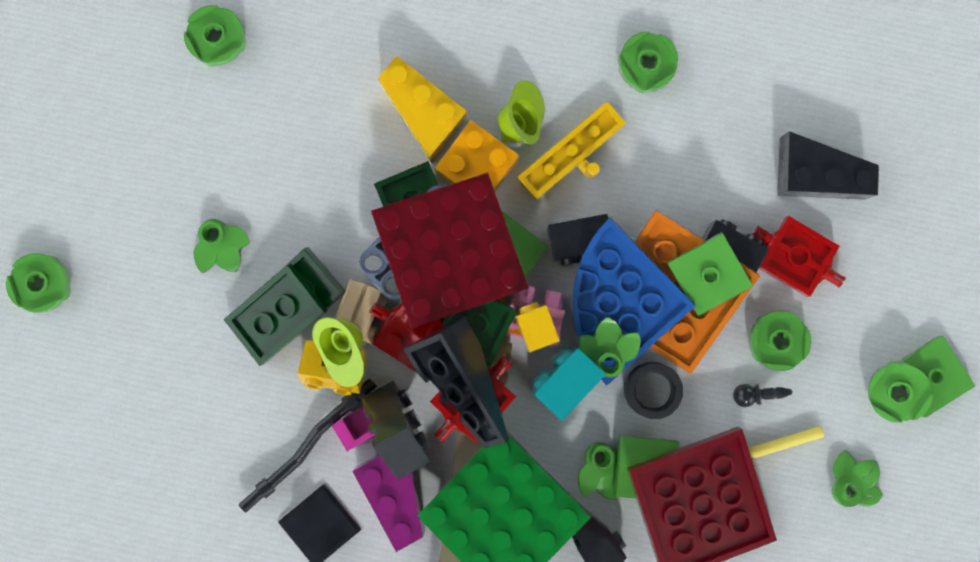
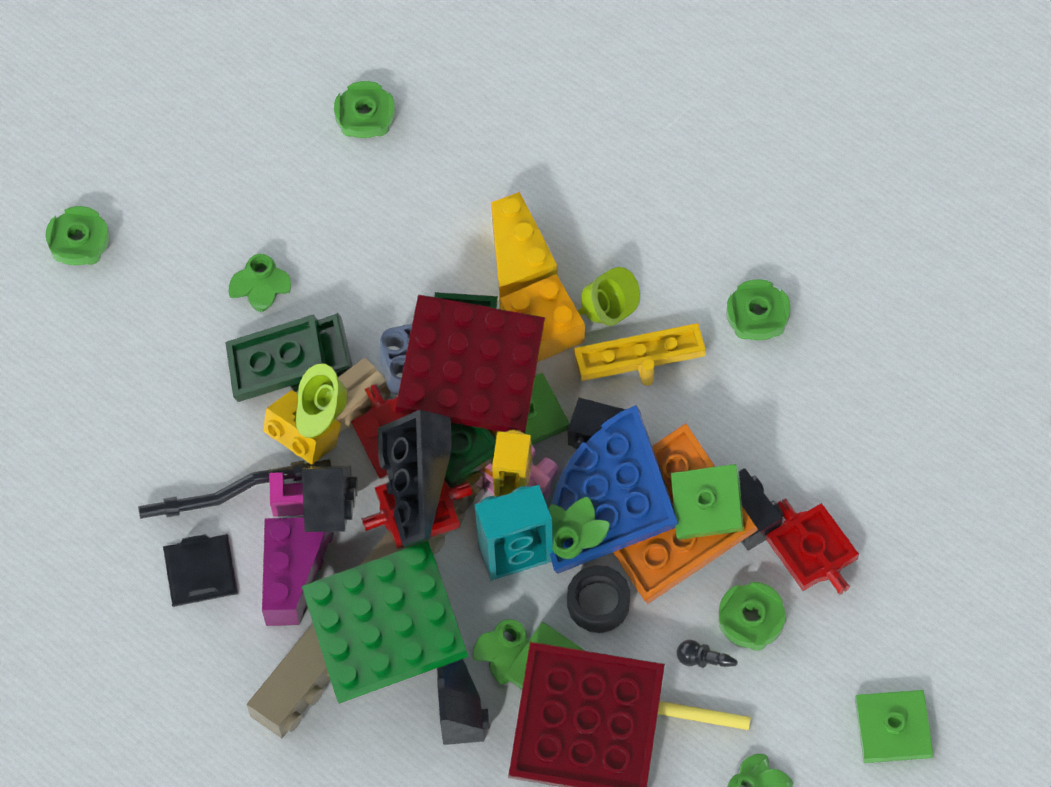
camera: 30 degrees right, 25 degrees down
(822, 171) = (877, 480): black wedge -> none
(903, 408) = (861, 729): bright green plate -> none

